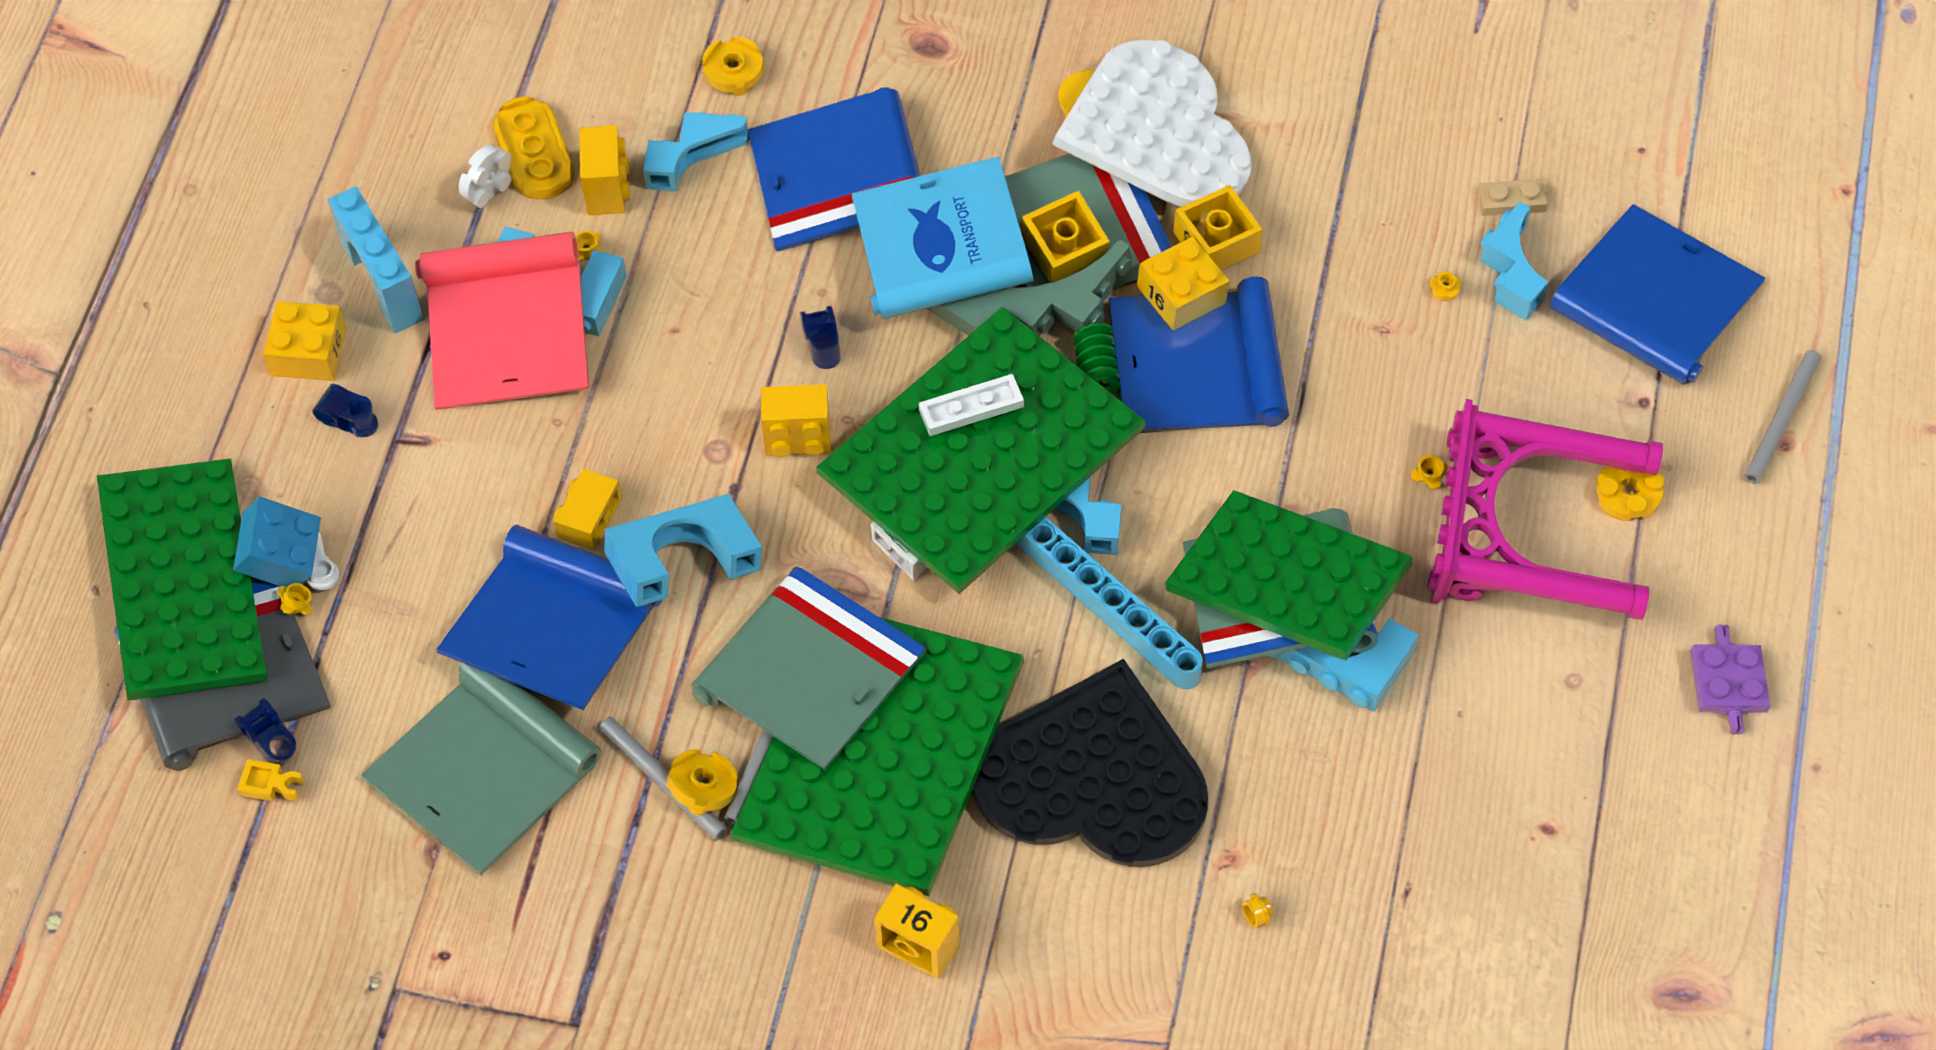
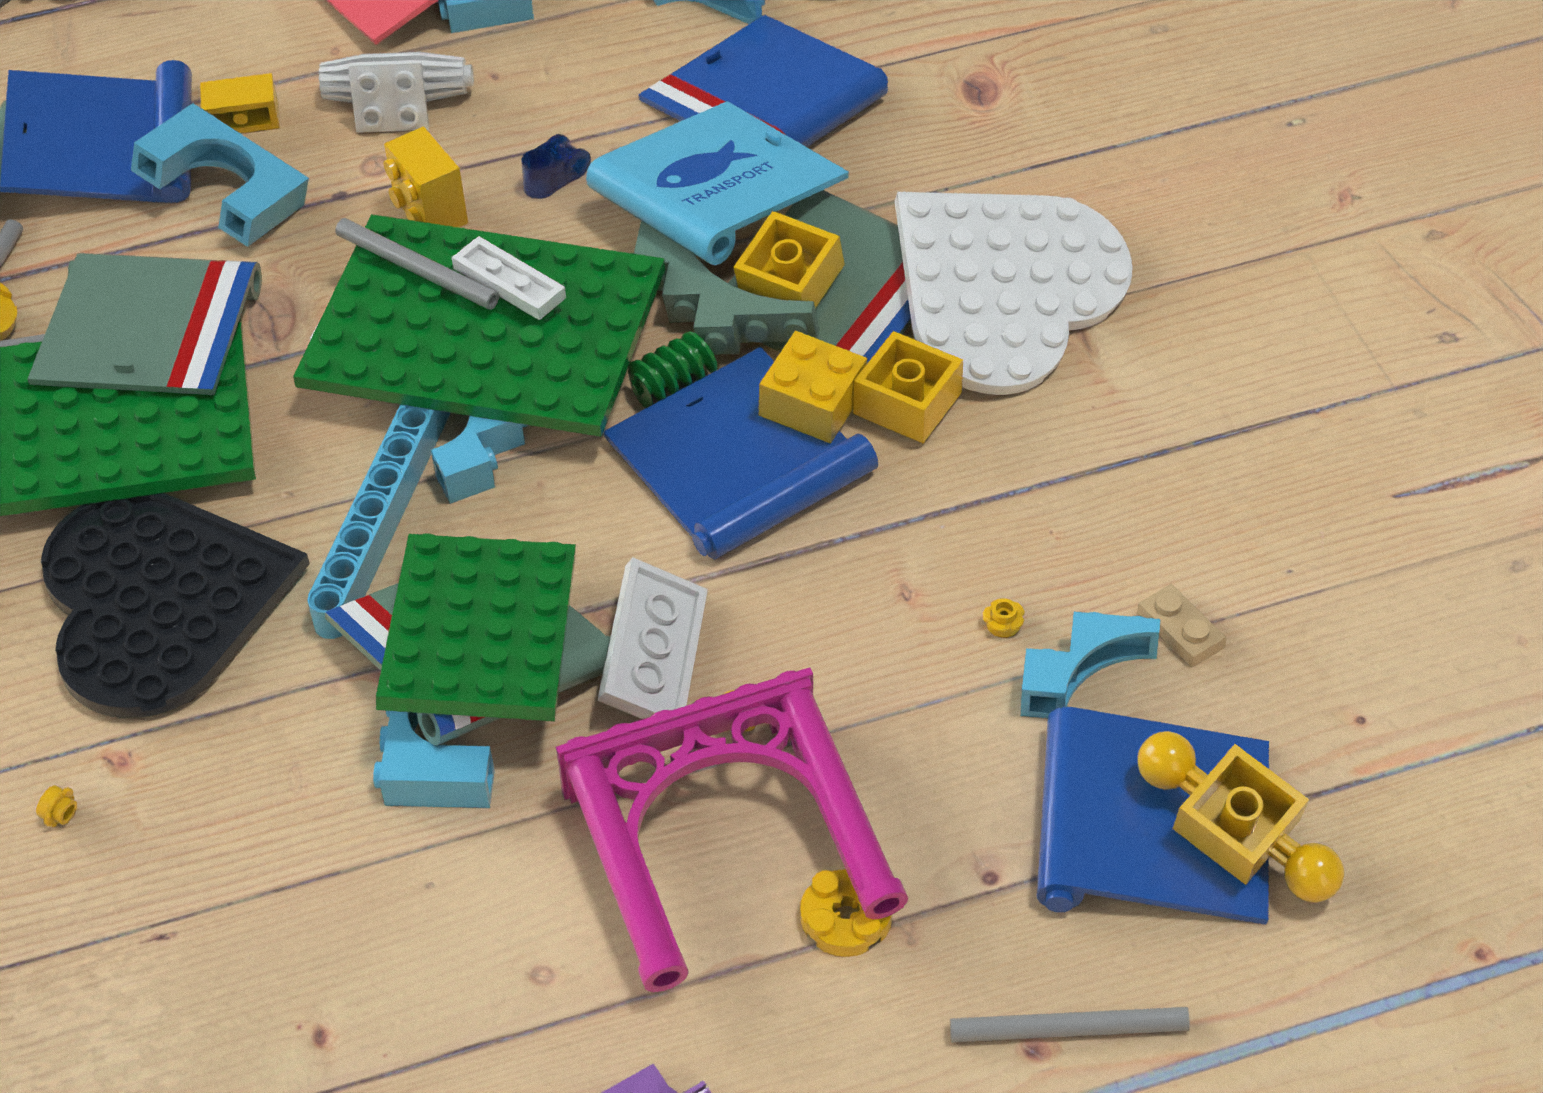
camera: 60 degrees right, 10 degrees down
(656, 392) = (393, 88): none -> white plate
(907, 456) = (417, 263): none -> light grey piece
(1352, 486) = (652, 641): none -> white plate
(1704, 242) = (1241, 815): none -> yellow brick

